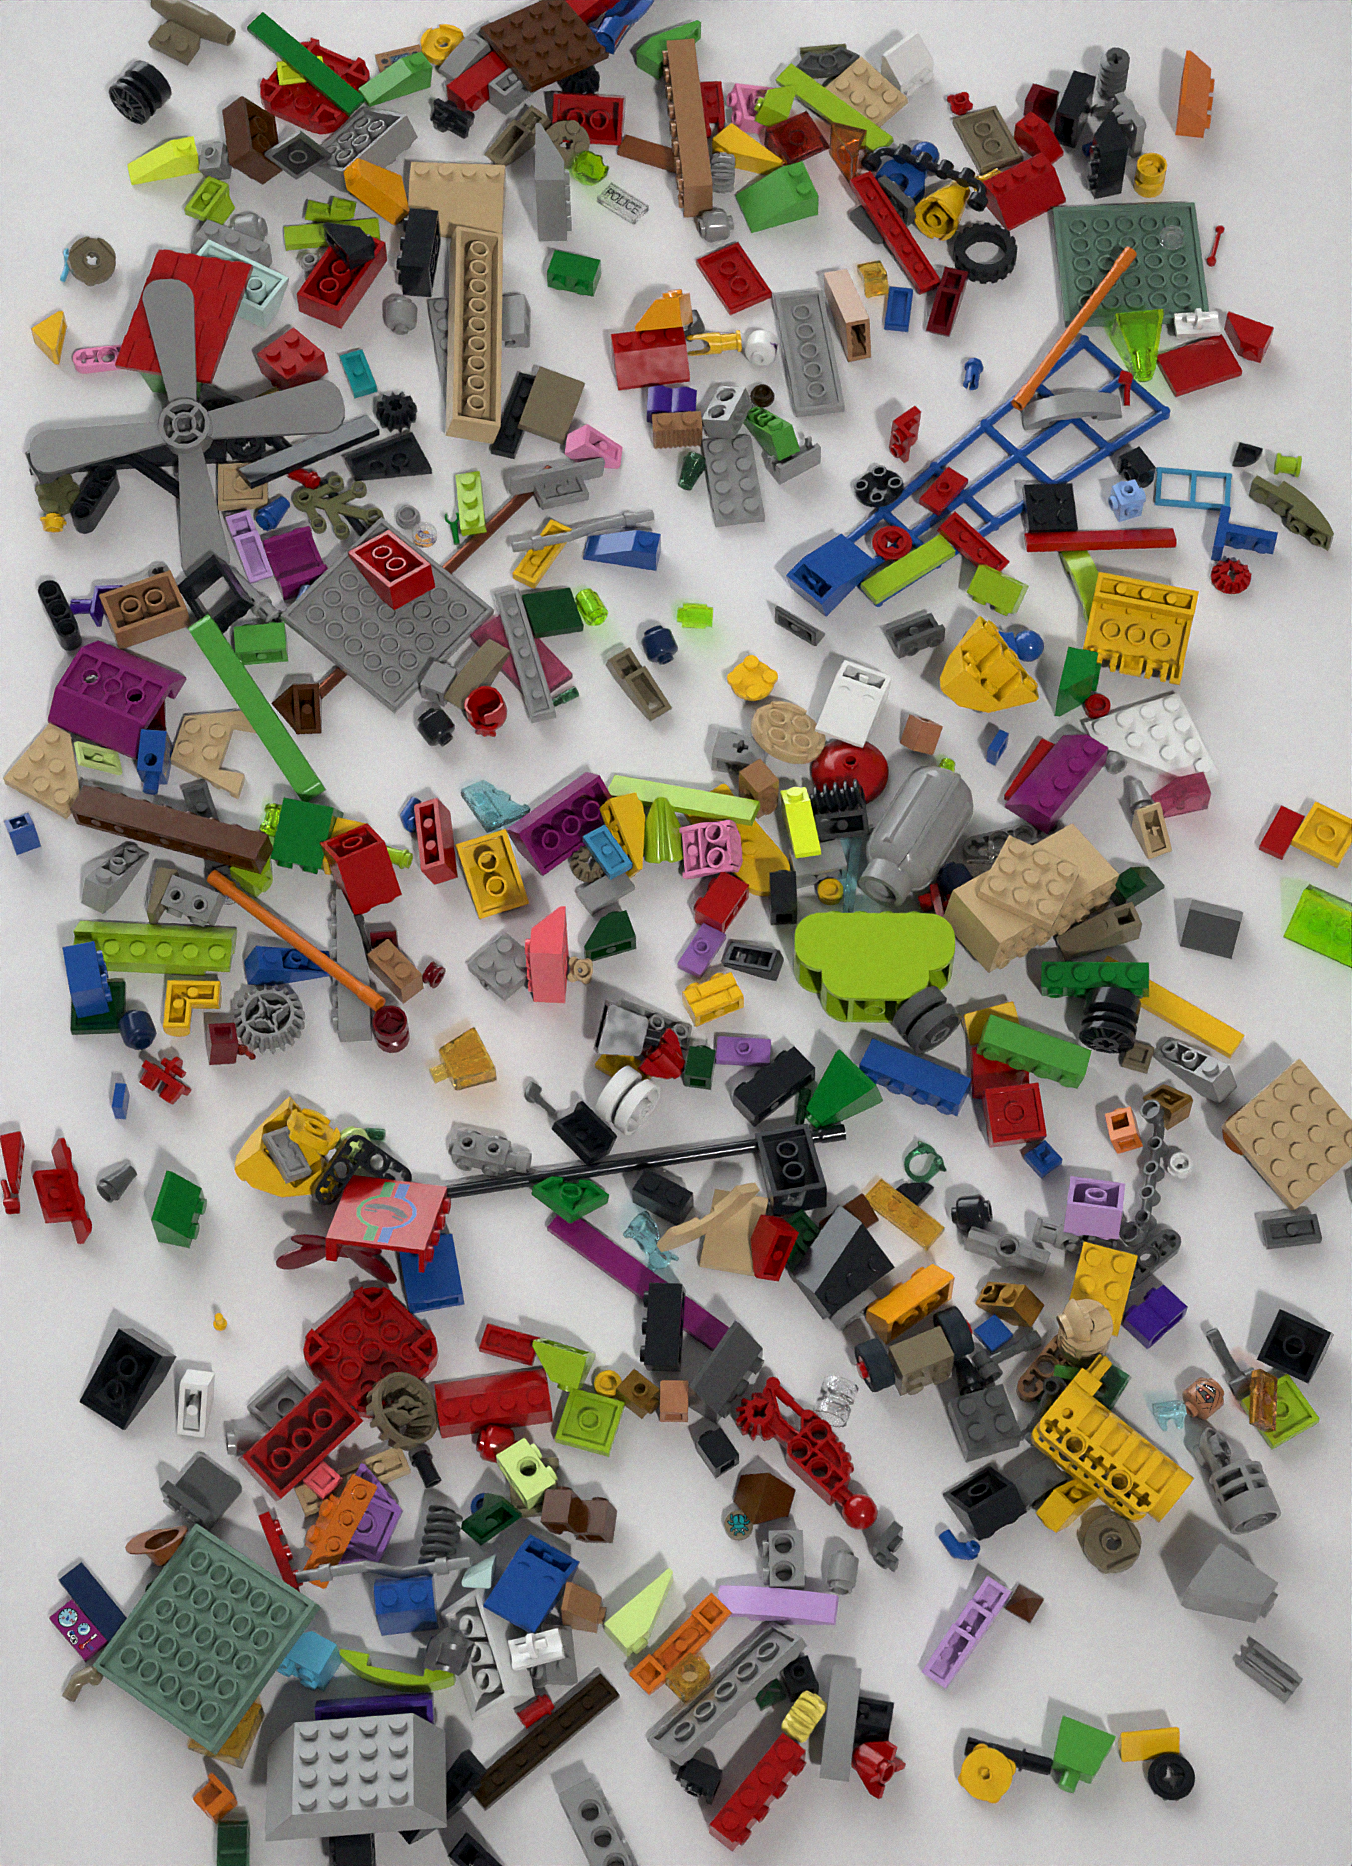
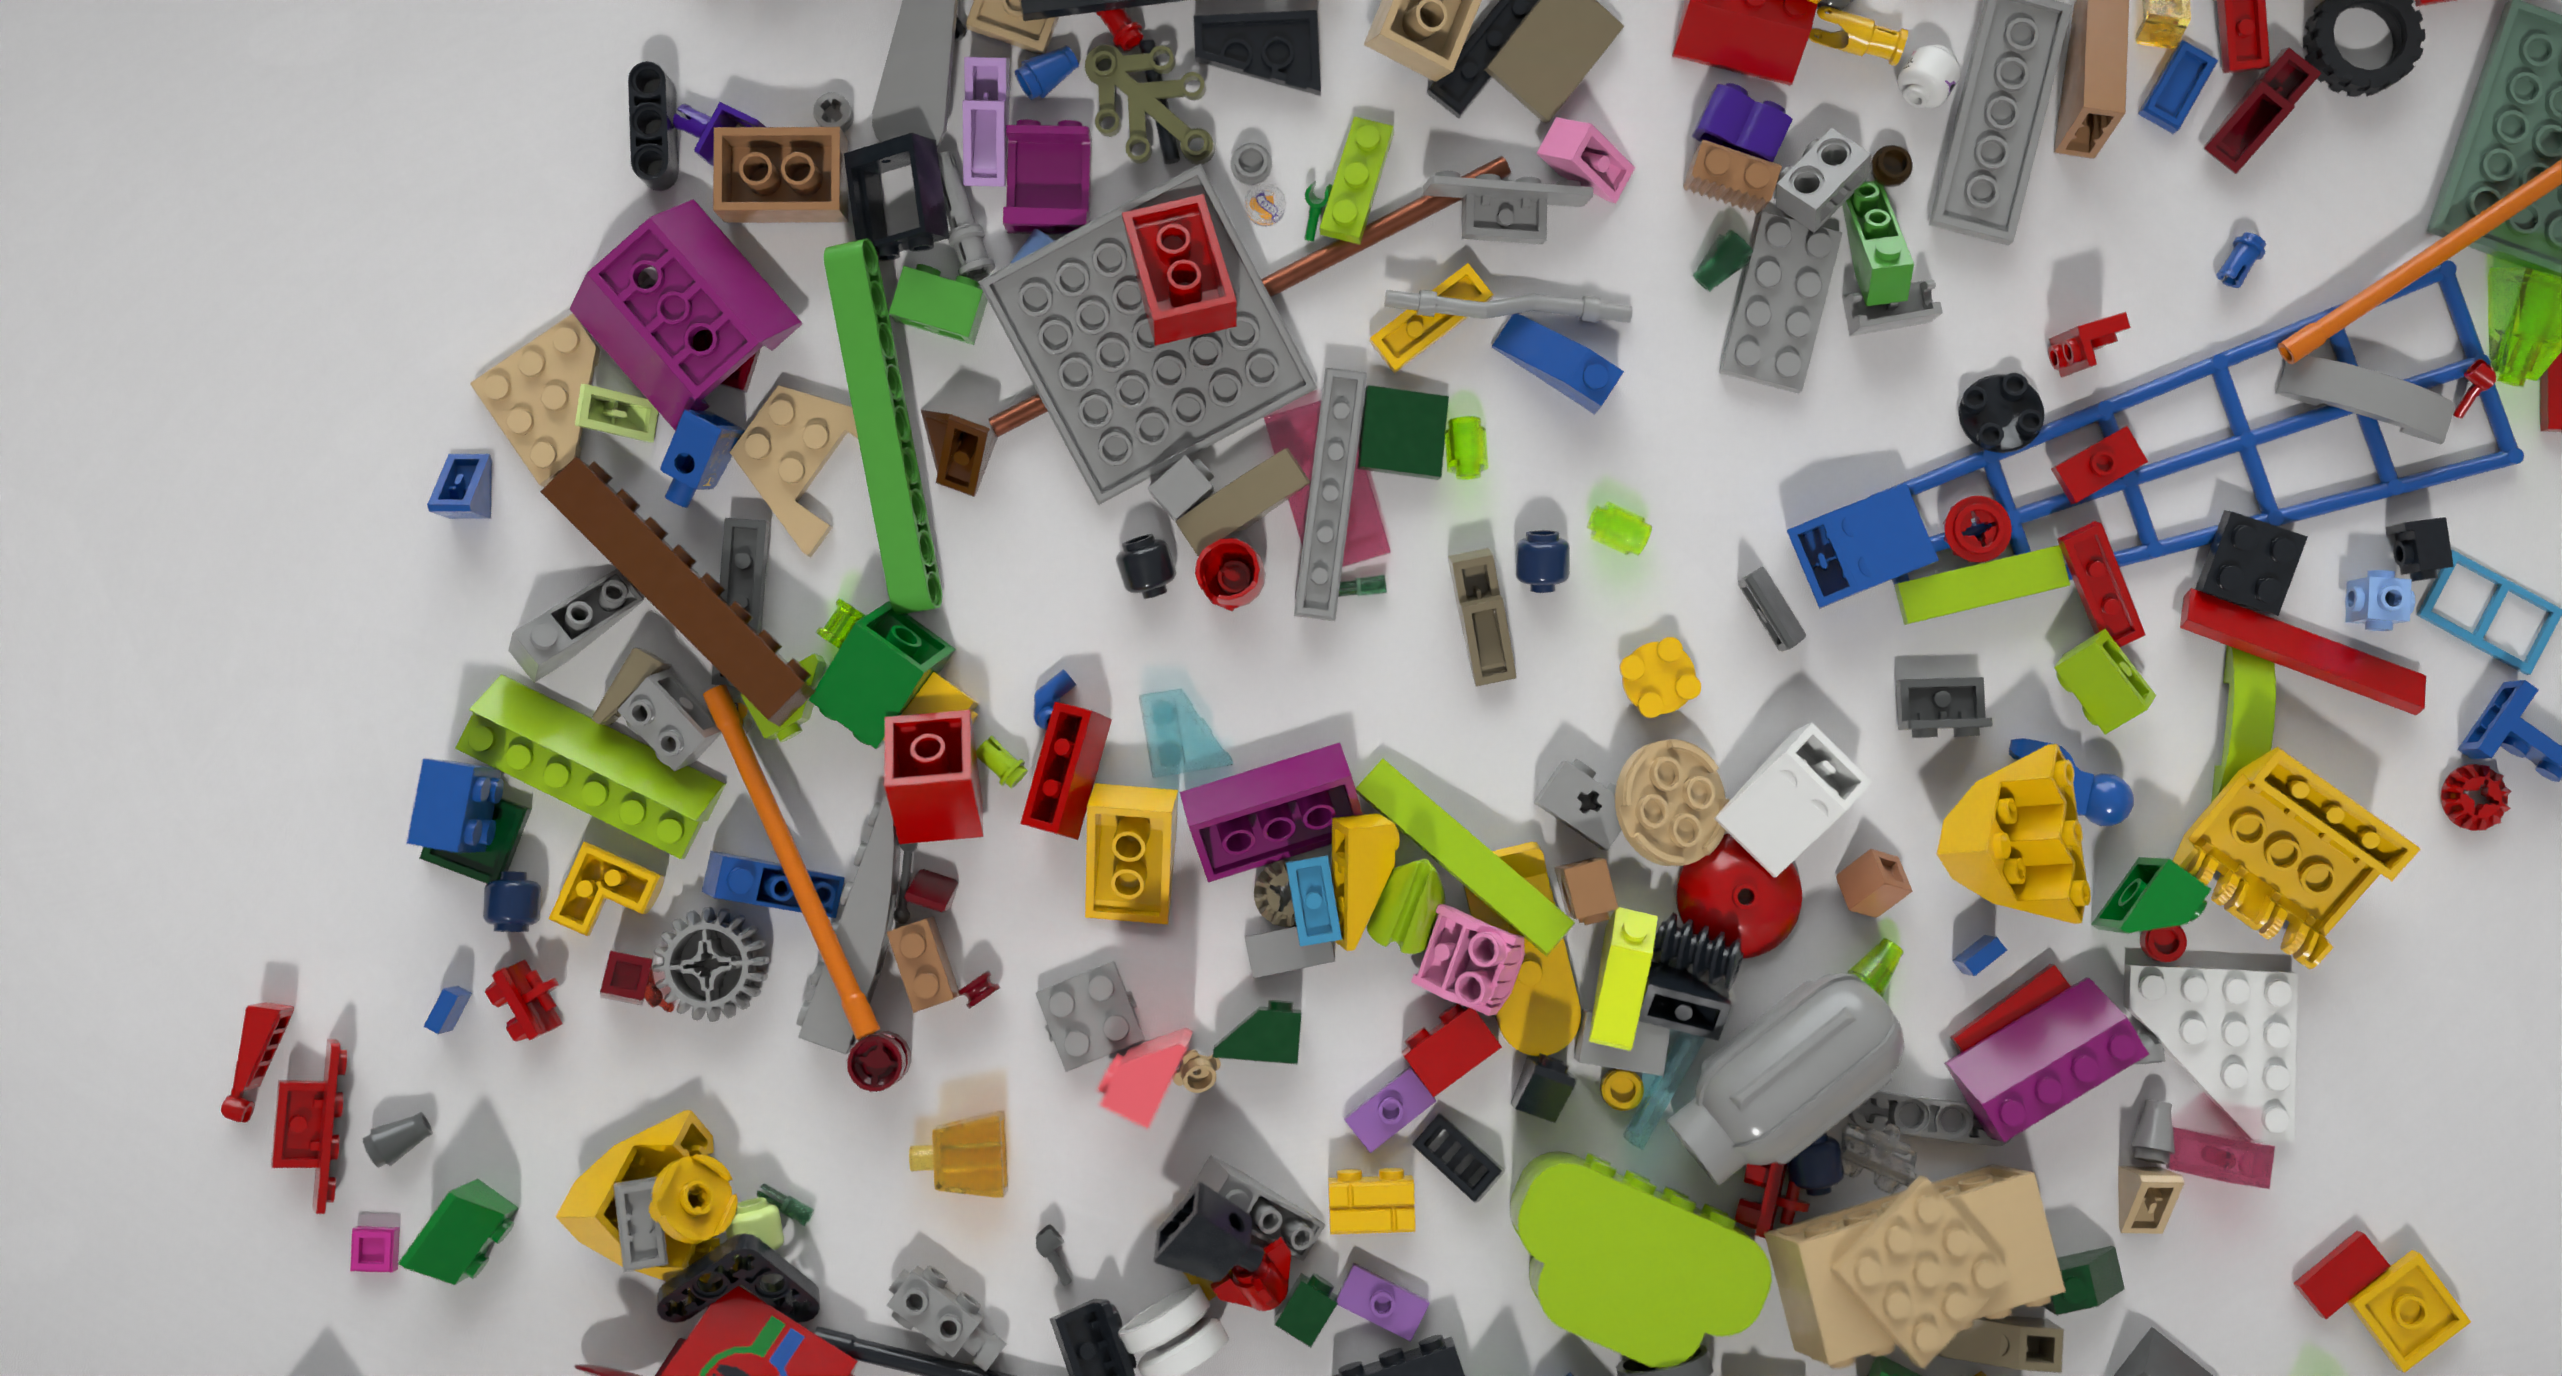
camera: 20 degrees right, 25 degrees up
(126, 1251) = (374, 1249): none -> dark pink tile

